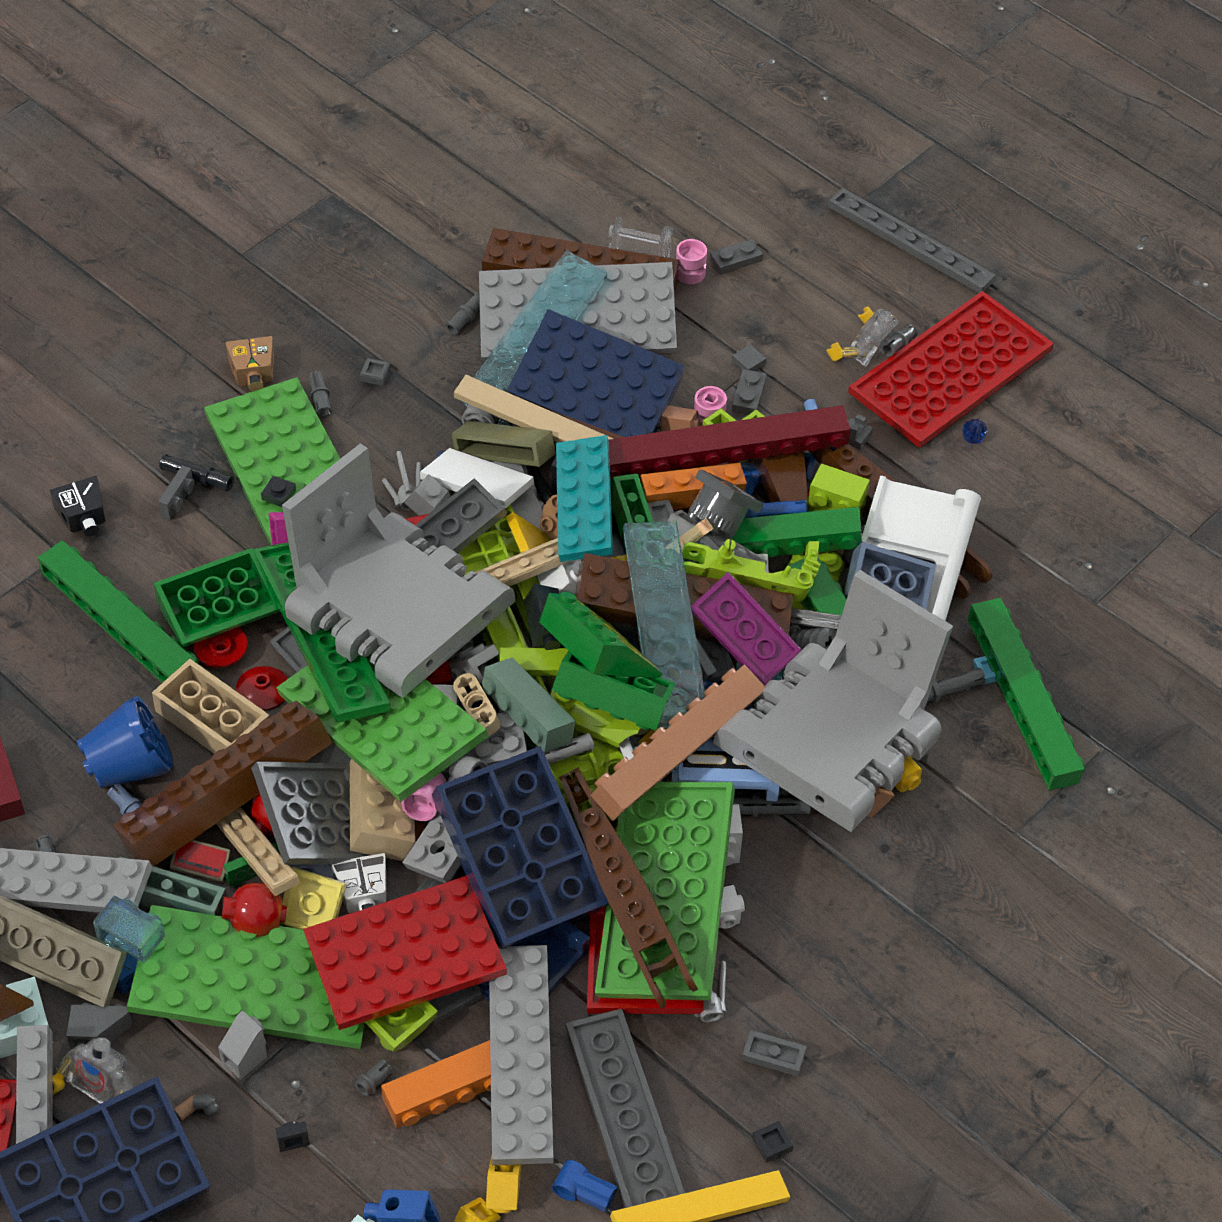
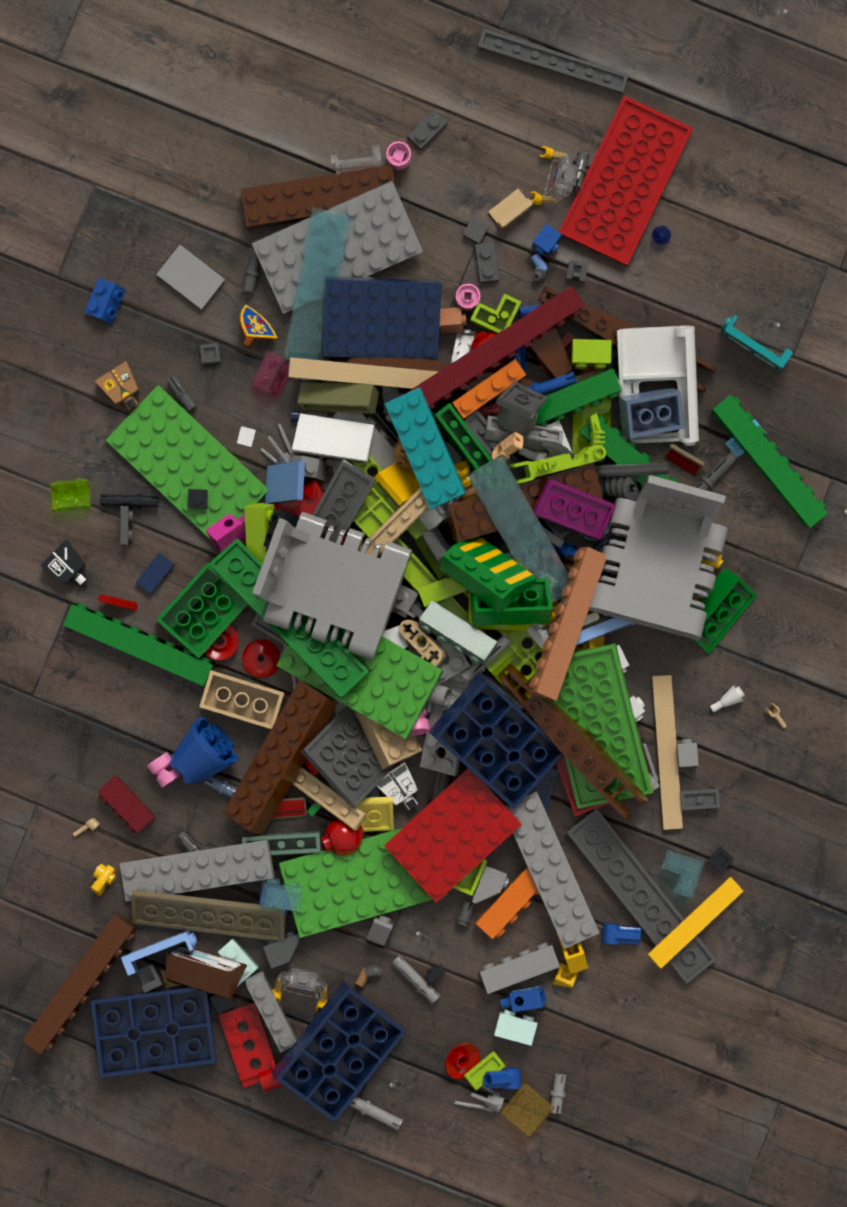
camera: 20 degrees left, 35 degrees up
(66, 757) = (163, 770): none -> bright pink wheel
(119, 563) = (117, 602): none -> red tile
(131, 441) = (70, 495): none -> clear neon green bracket
(183, 554) = (155, 573): none -> dark blue tile
(264, 1146) = (412, 976): none -> light grey pin
(283, 285) = (105, 300): none -> blue bracket
(376, 462) = (246, 436): none -> white sticker
(392, 298) = (190, 277): none -> light grey tile
(400, 496) = (285, 482): none -> medium blue tile
(424, 1048) = (490, 884): none -> light grey slope
(437, 411) = (271, 374): none -> clear pink bracket
(439, 355) = (255, 326): none -> shield
(443, 1175) = (520, 968): none -> light grey brick
(716, 1133) = (687, 869): none -> clear light blue brick
(750, 983) = (667, 752): none -> tan tile
(778, 989) = (687, 753): none -> light grey brick
(802, 354) = (510, 209): none -> tan panel
(831, 389) = (546, 240): none -> blue brick
(870, 943) = (732, 696): none -> white cone
(891, 835) = (723, 608): none -> green slope
(924, 988) = (775, 713): none -> tan hand
(1052, 567) = (754, 348): none -> teal panel

